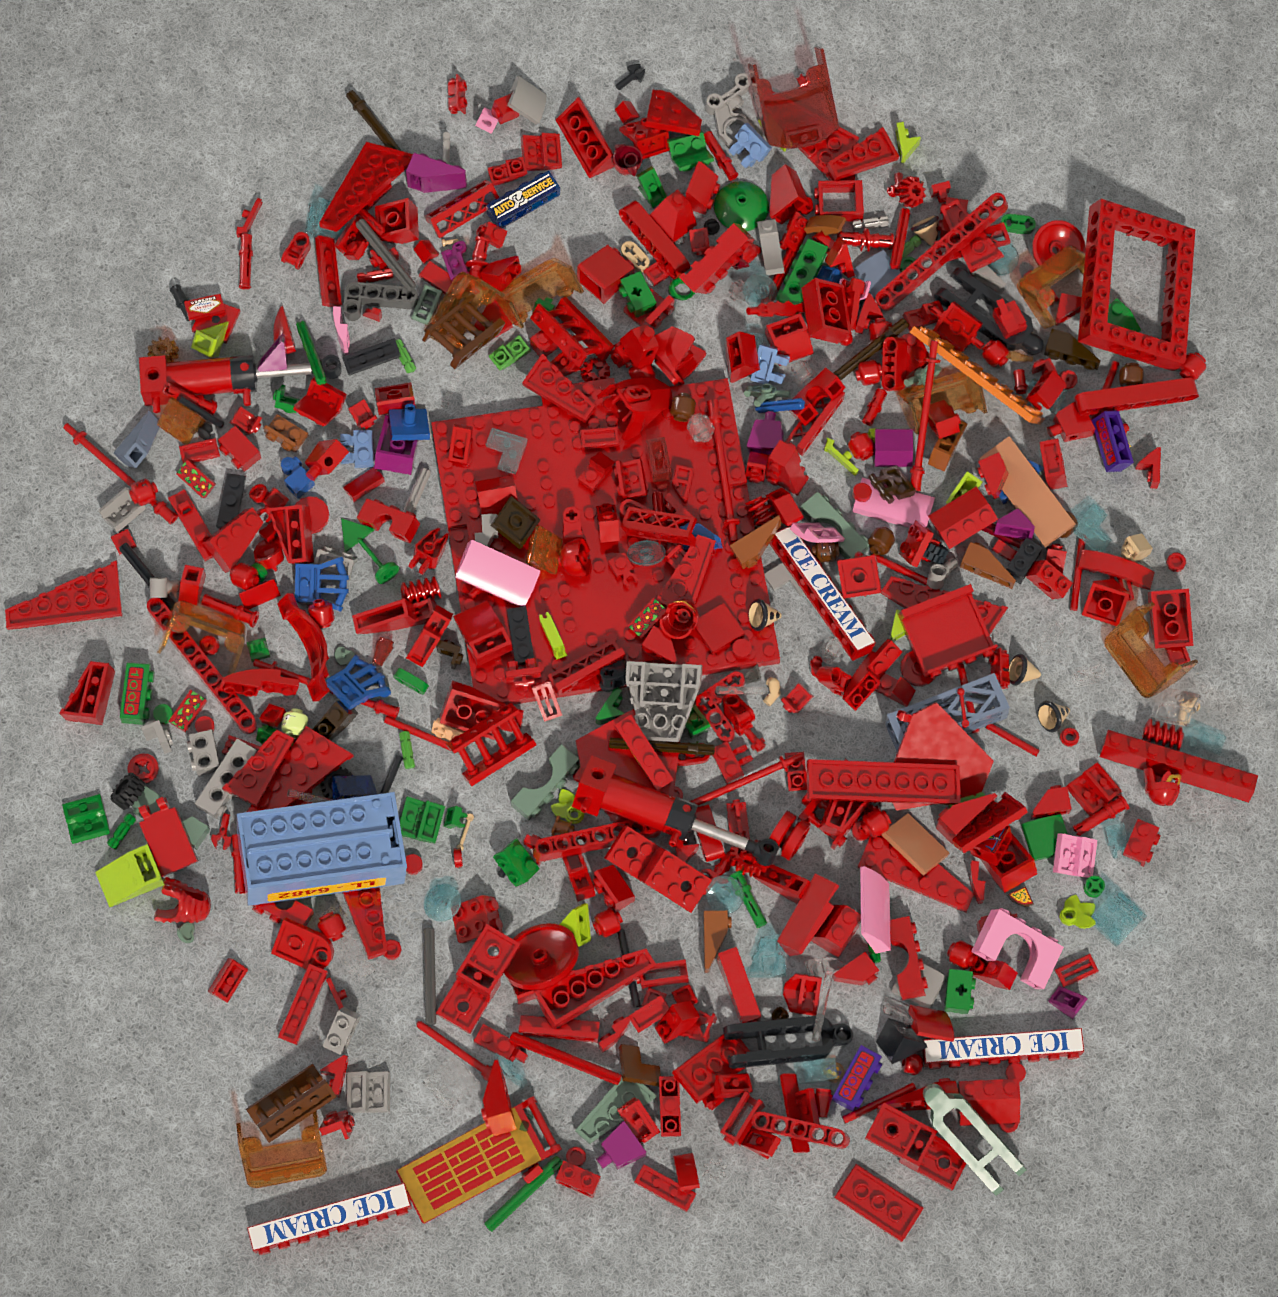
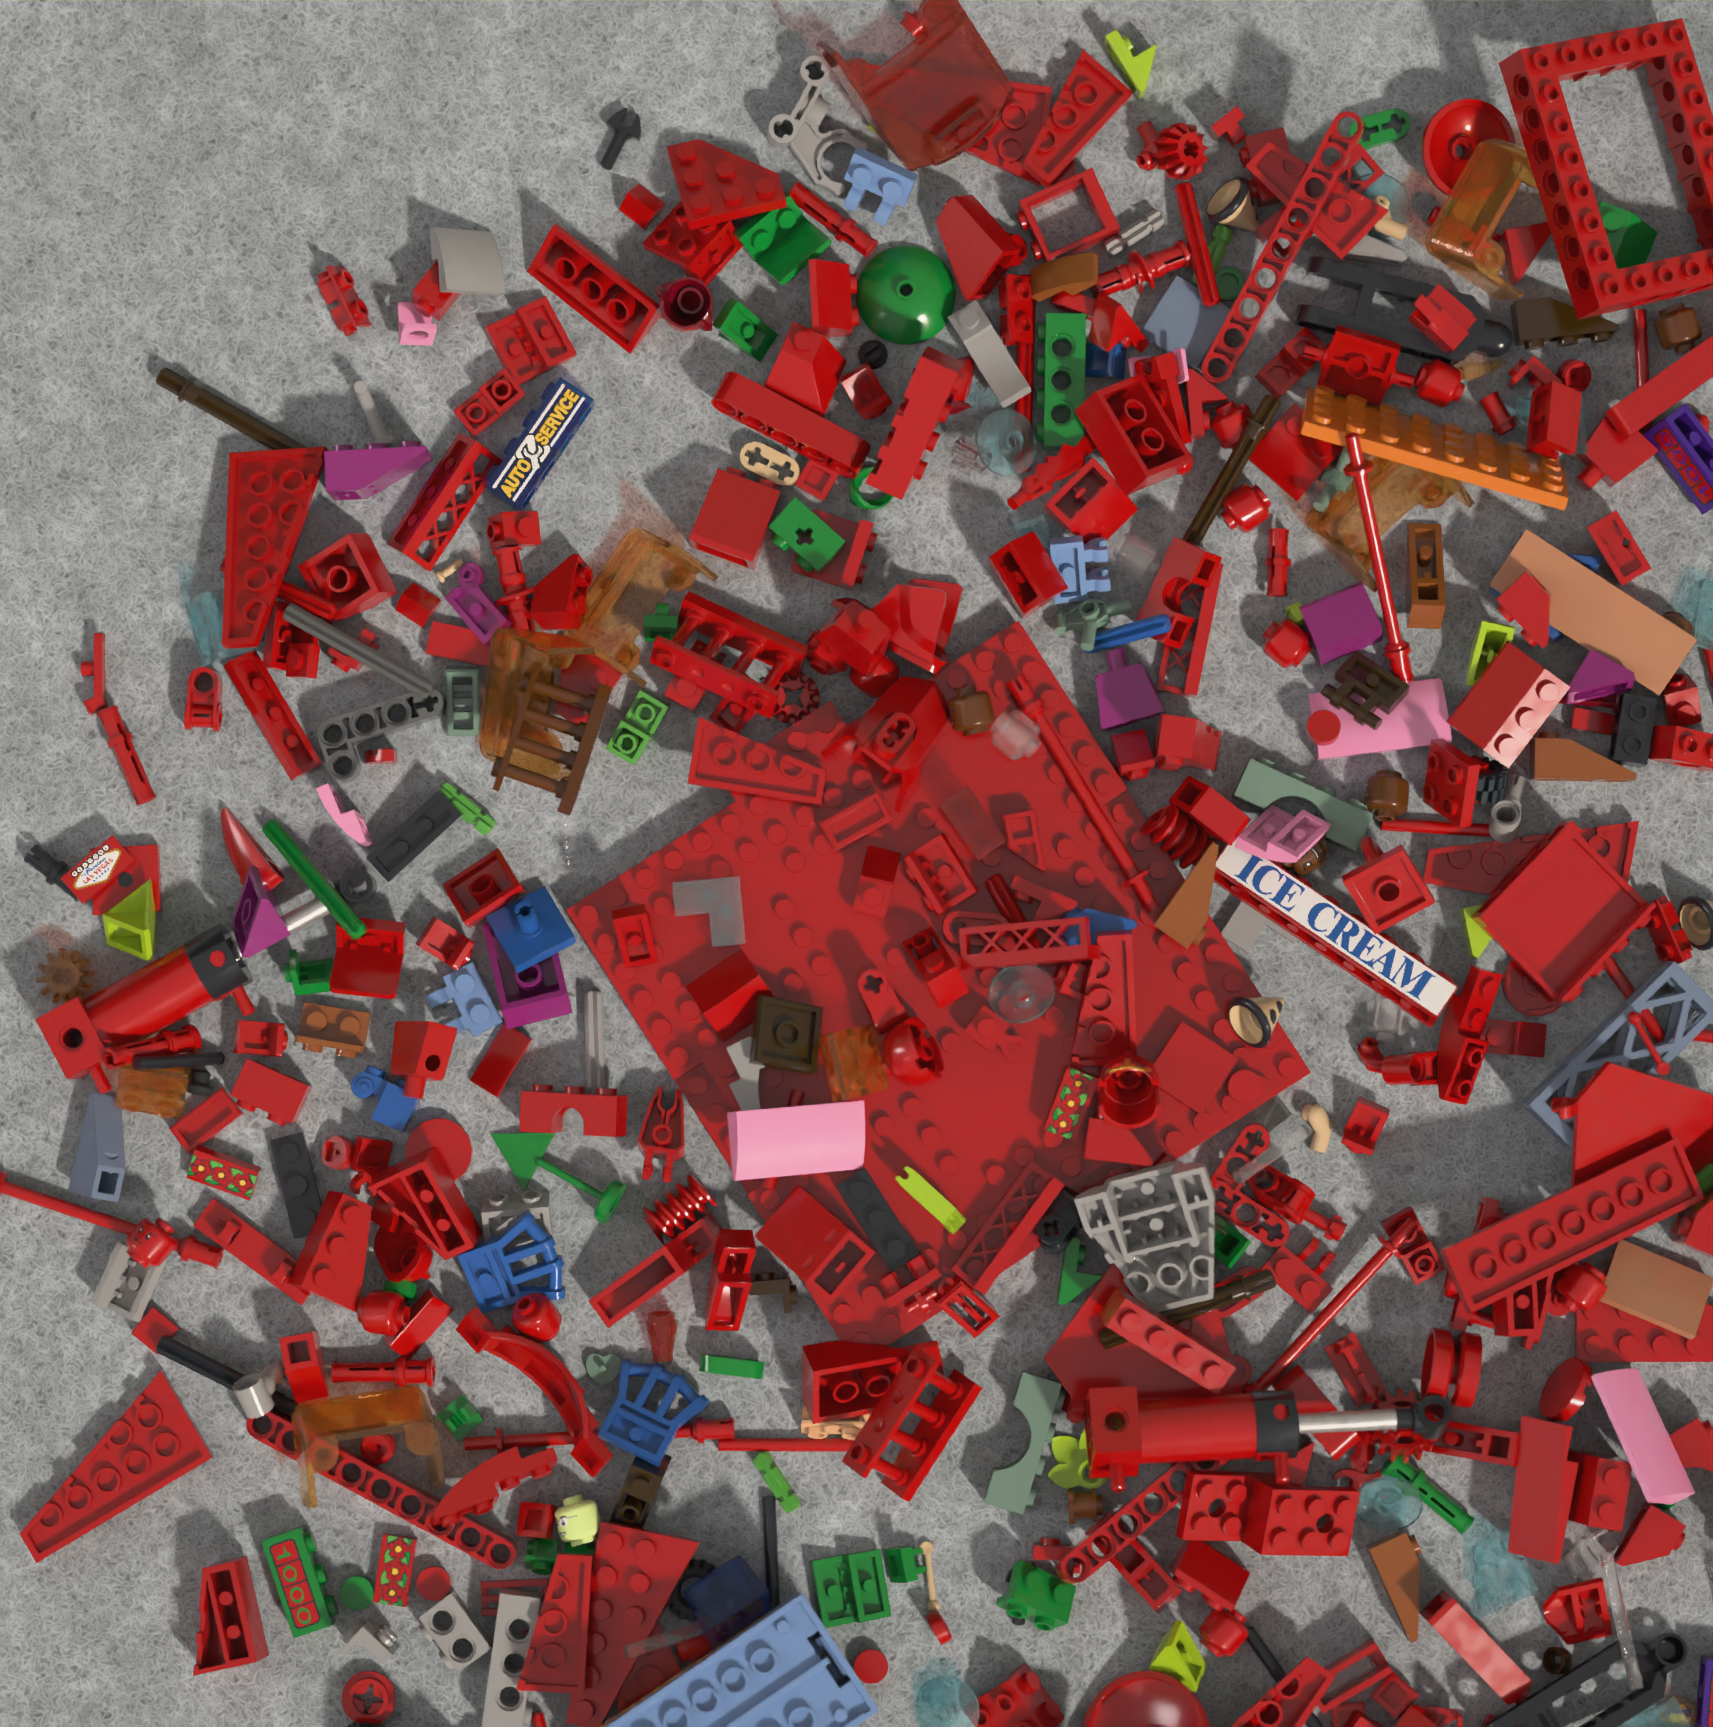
camera: 20 degrees left, 15 degrees up
(375, 275) = (350, 688): red axle -> none
(843, 459) = (1264, 676): lime piece -> none
(846, 872) = (1564, 1390): none -> red tile
(894, 363) = (1283, 478): red beam -> none
(943, 419) = (1405, 542): red piece -> none
(1001, 267) = (1387, 224): none -> tan arm

